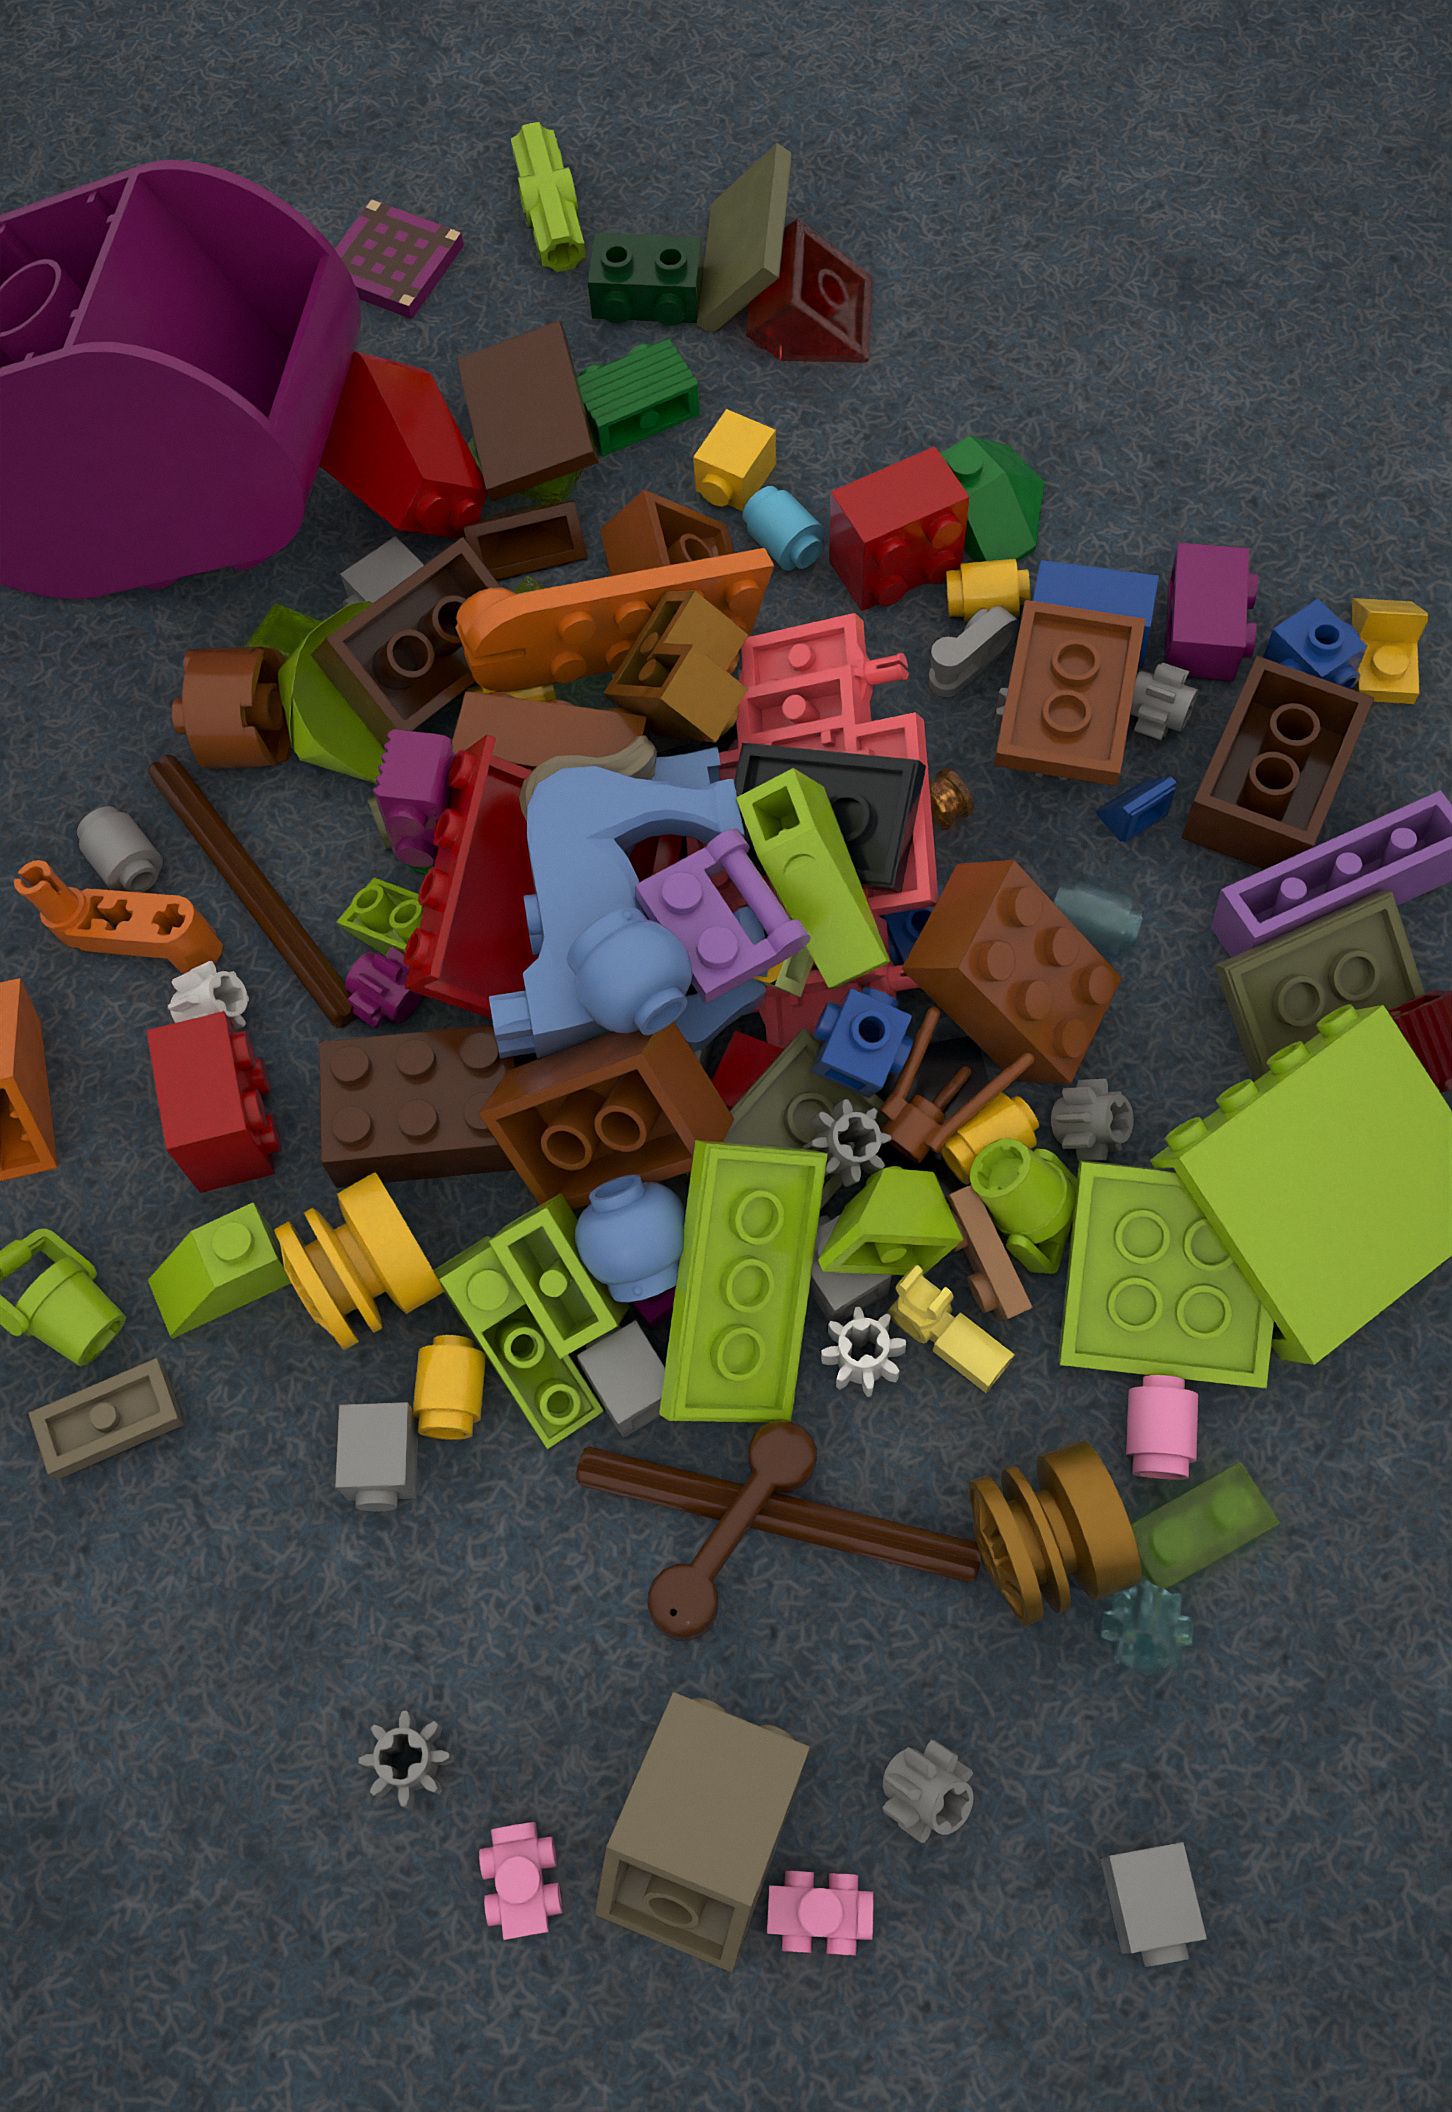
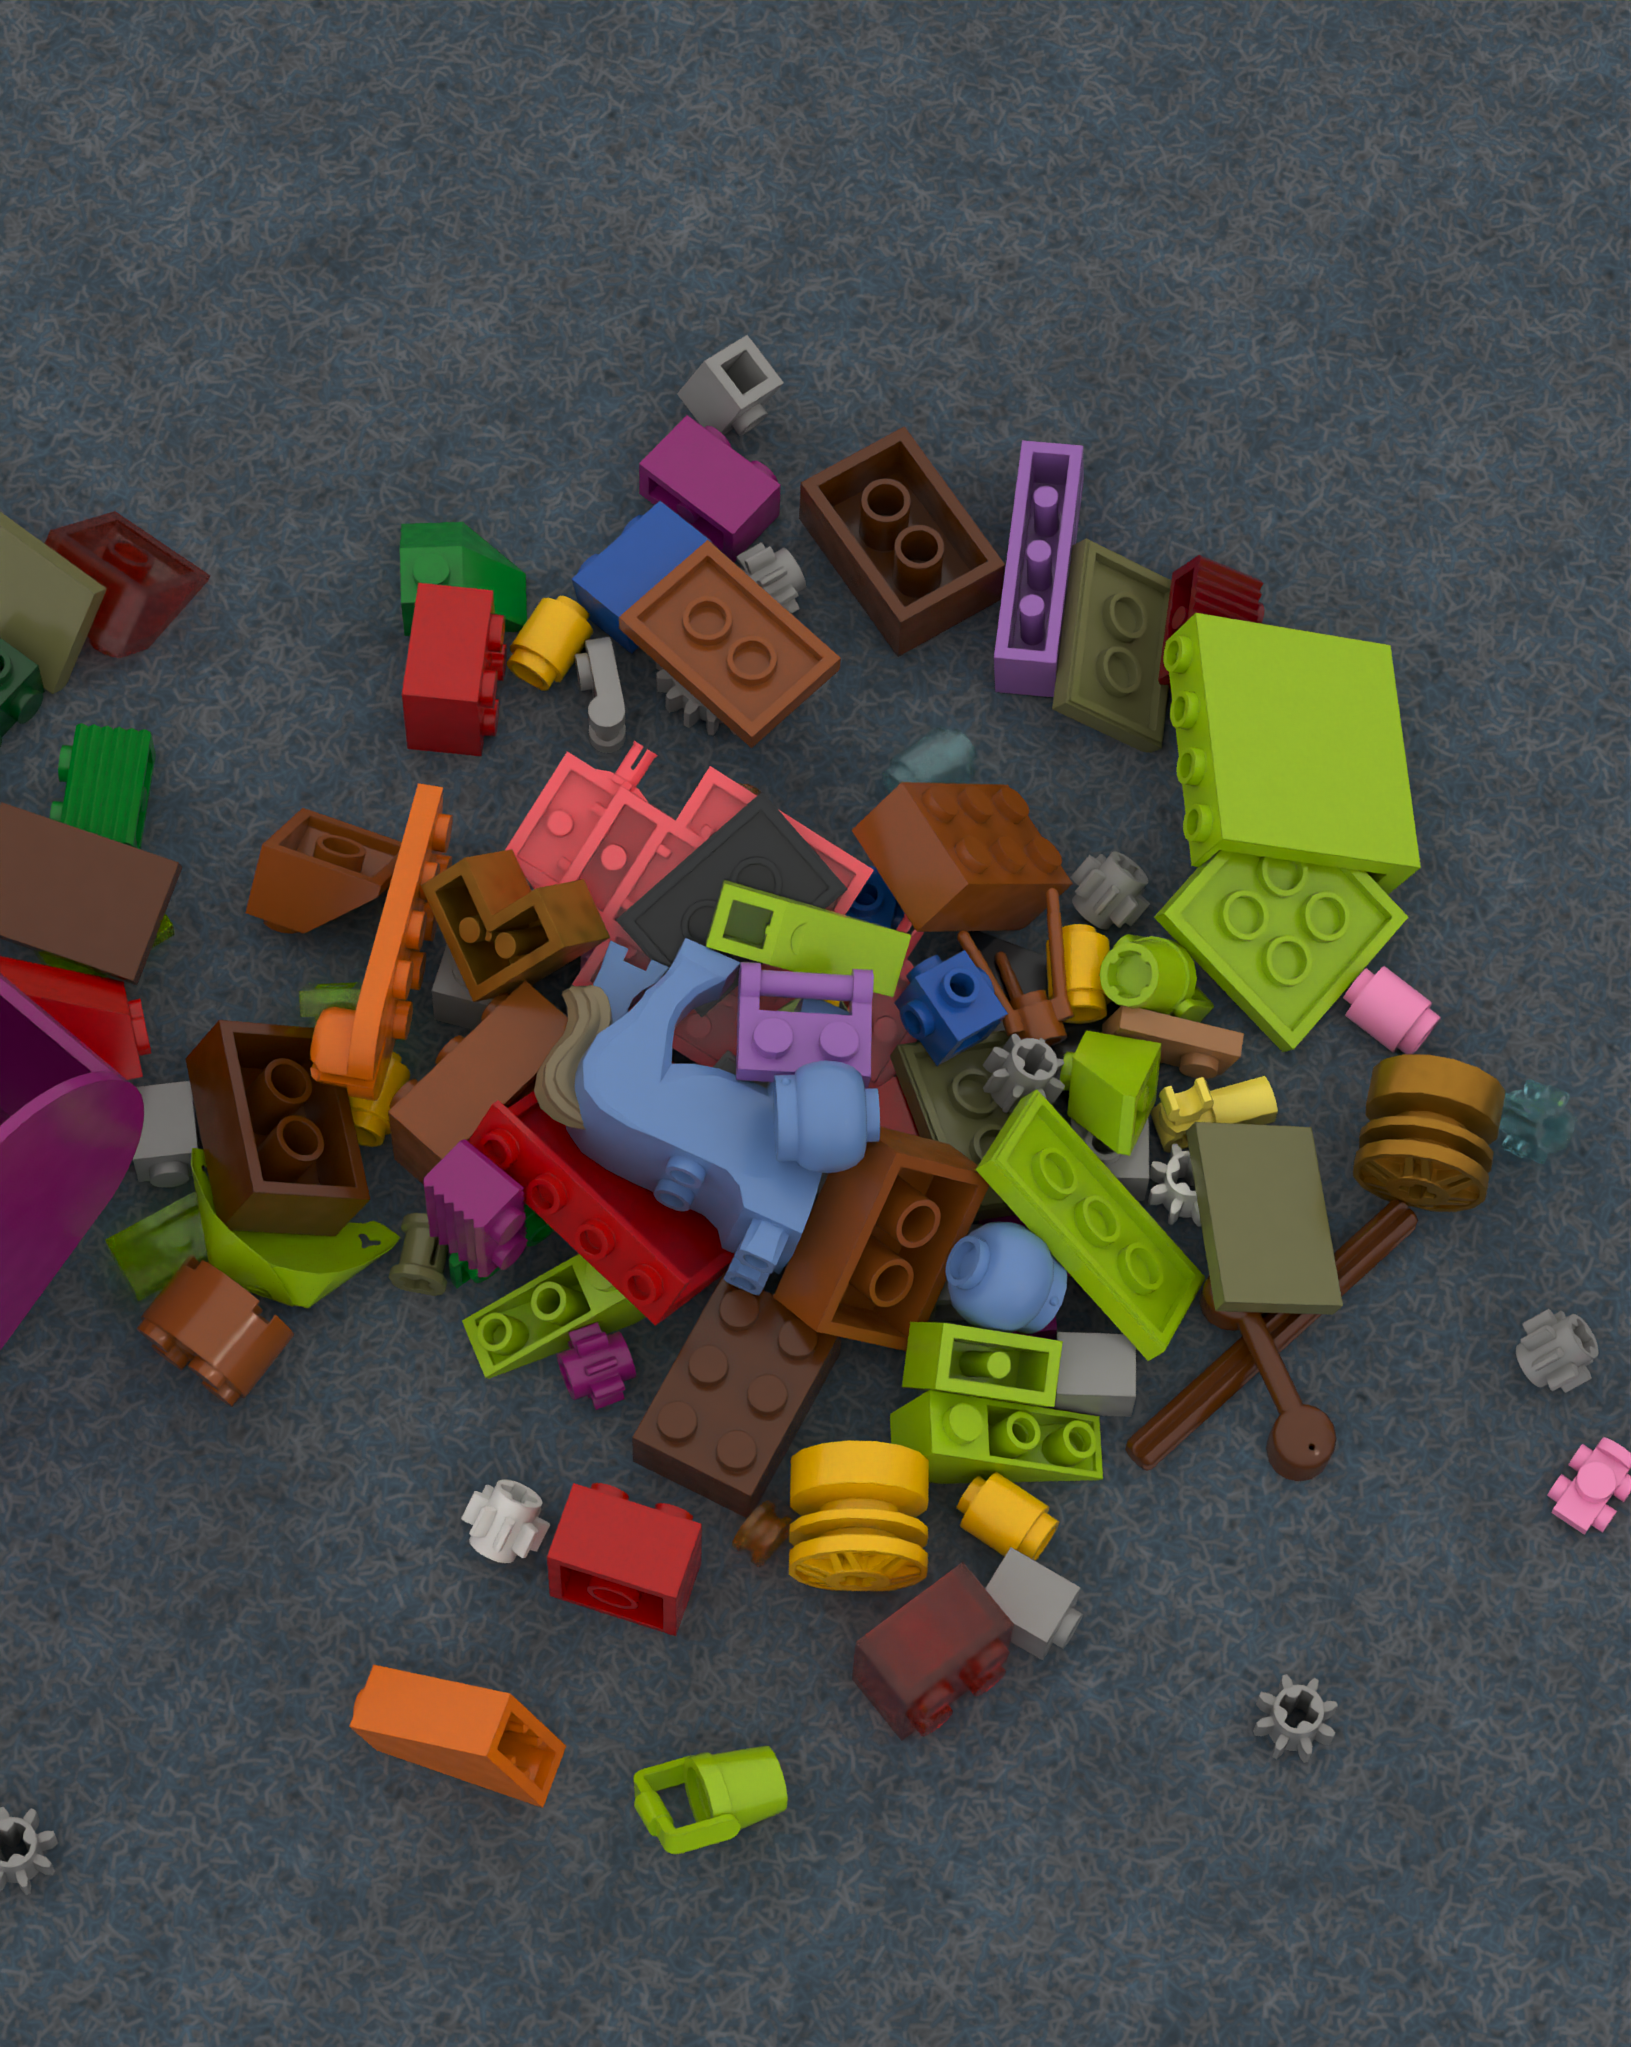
camera: 65 degrees left, 0 degrees up
(106, 1419) = (848, 1811): dark tan plate -> none
(119, 850) = (281, 1521): light grey brick -> none
(145, 921) = (324, 1598): orange beam -> none
(218, 1270) = (775, 1649): lime slope -> none
(253, 890) = (398, 1429): reddish brown axle -> none
(264, 1394) = (933, 1653): none -> clear red brick
(318, 1194) = (762, 1533): none -> clear orange bush
(517, 1866) = (1447, 1691): bright pink piece -> none
(527, 538) = (190, 982): reddish brown slope -> none
(700, 1830) = (1488, 1527): dark tan slope -> none
(734, 460) = (251, 756): yellow brick -> none
(783, 528) = (357, 761): medium azure brick -> none
(863, 1433) = (1263, 1218): none -> olive tile
(1138, 807) = (851, 682): blue slope -> none
(1201, 1527) = (1482, 1024): clear neon green plate -> none
(1305, 568) = (731, 388): none -> light grey brick
(1318, 645) = (813, 435): blue brick -> none
(1391, 659) = (830, 378): yellow slope -> none

